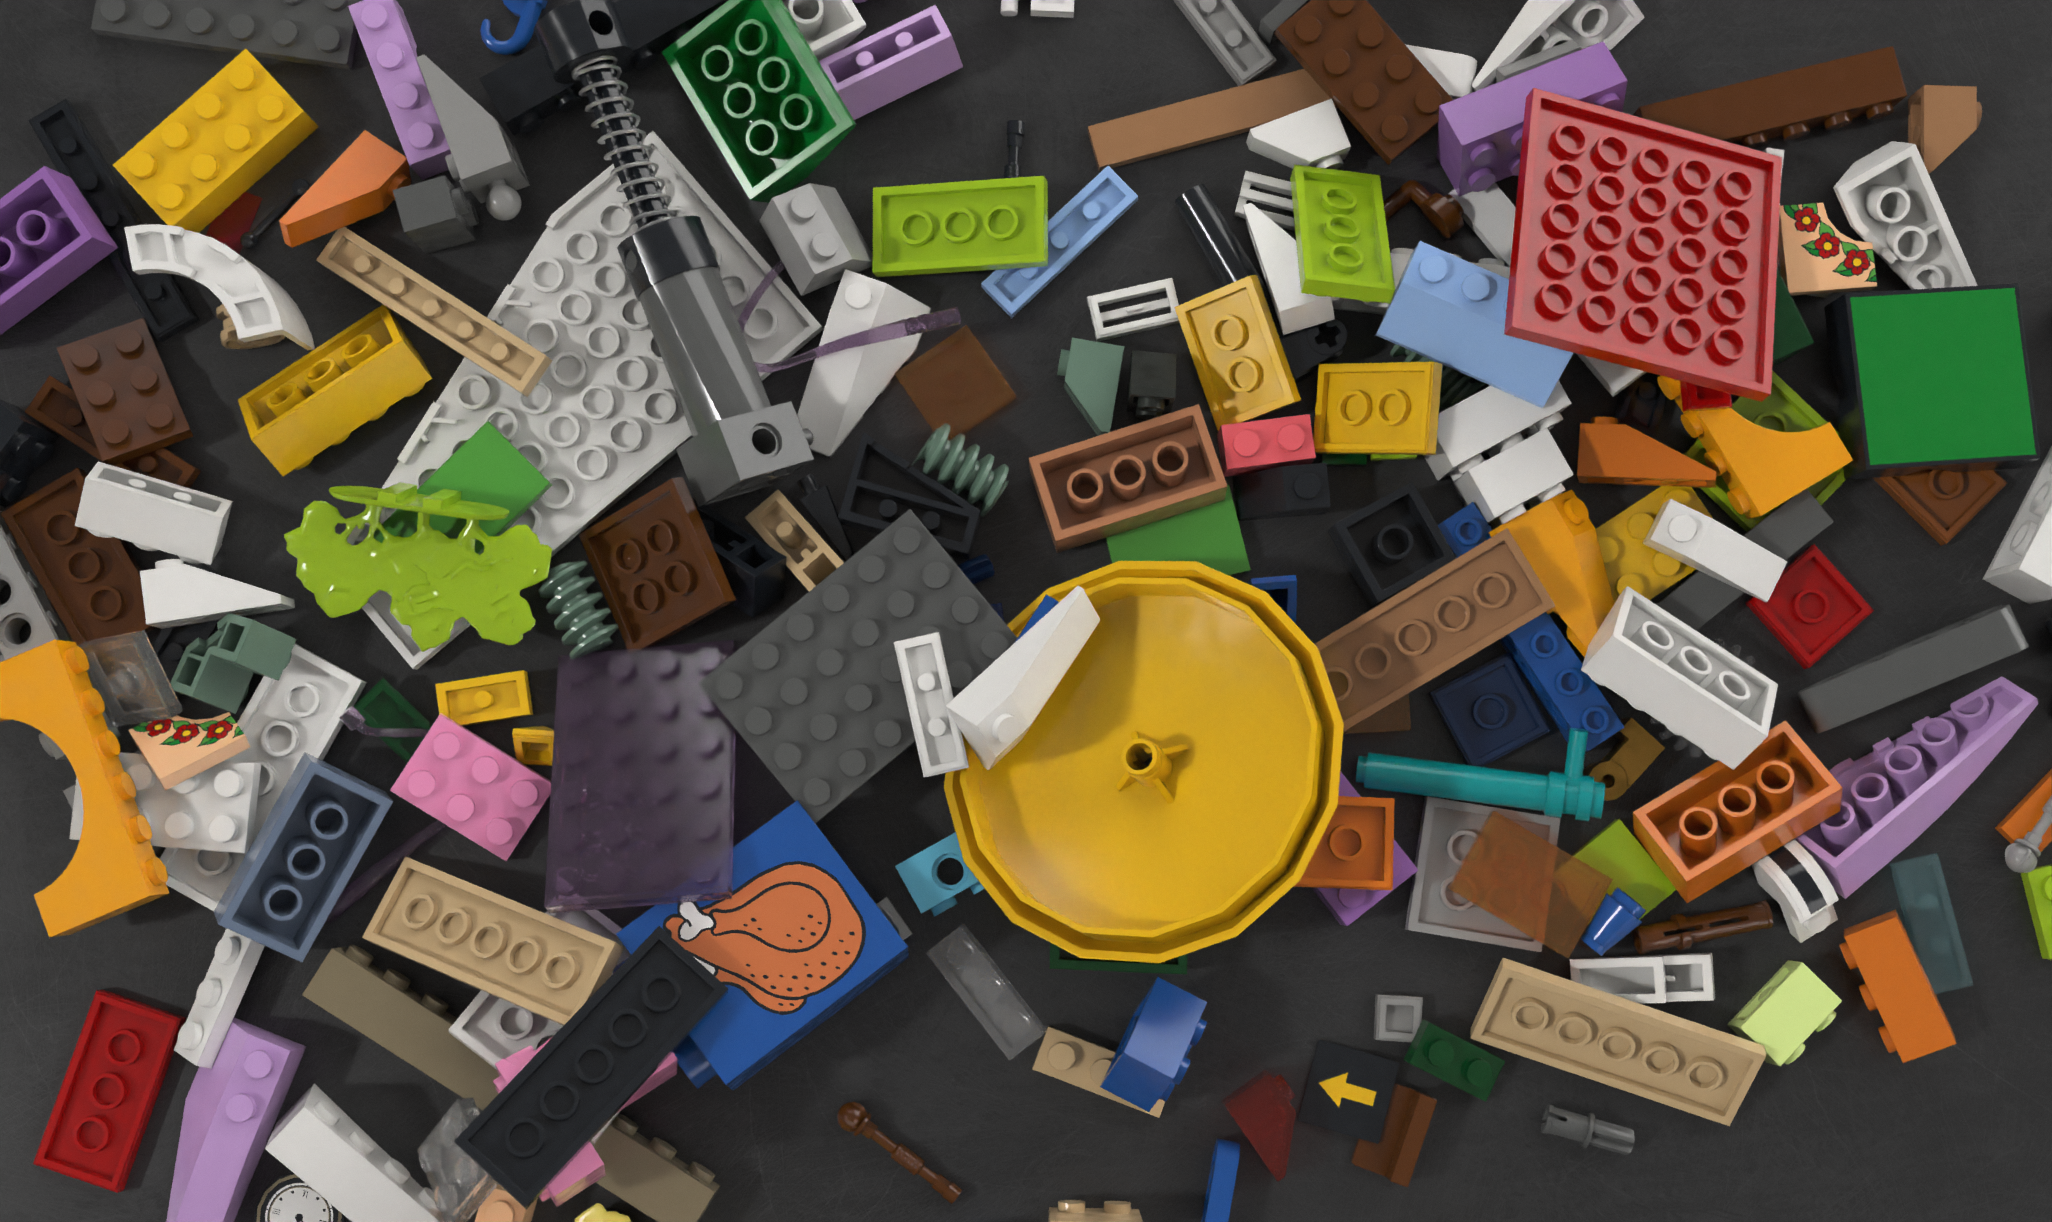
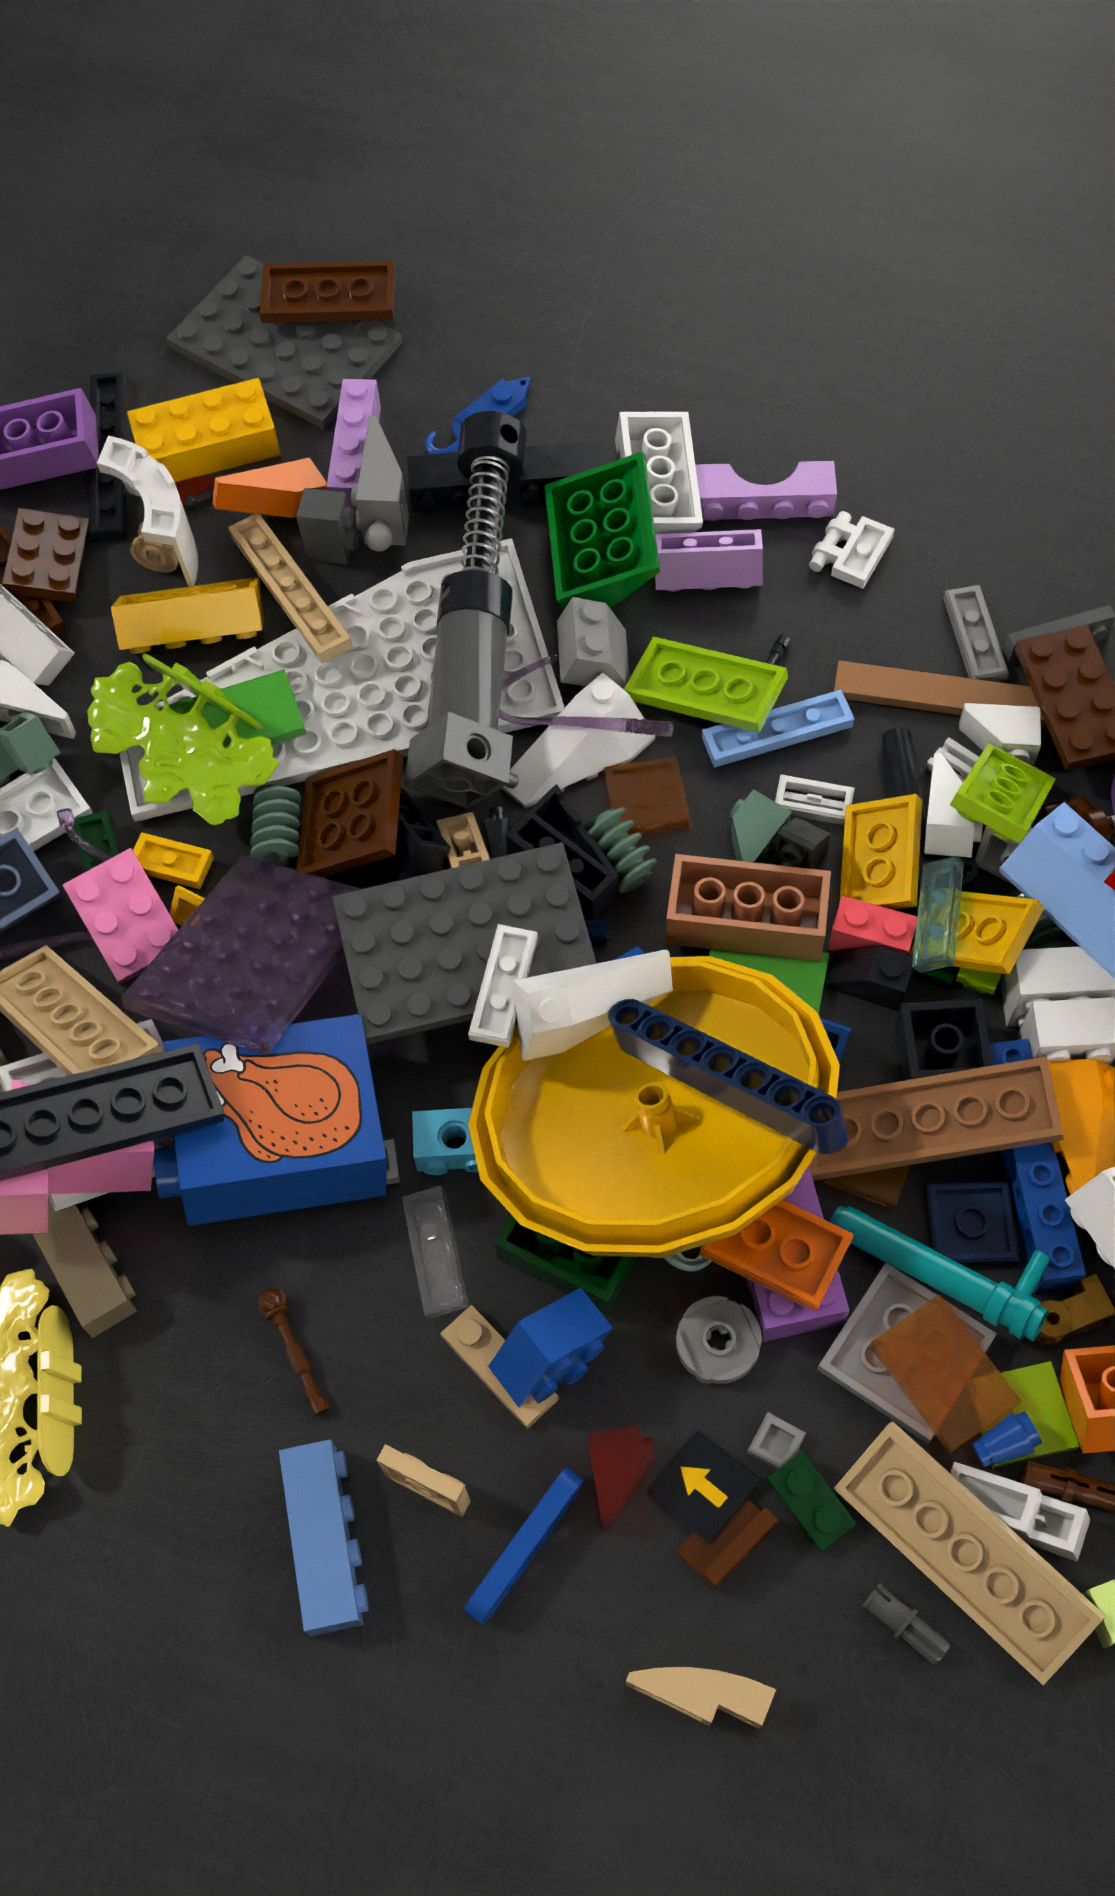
camera: 30 degrees right, 20 degrees down
(1230, 724) = (730, 1076): none -> dark blue beam
(1301, 973) = (708, 1362): none -> light grey plate
(1329, 405) = (938, 914): none -> clear light blue tile

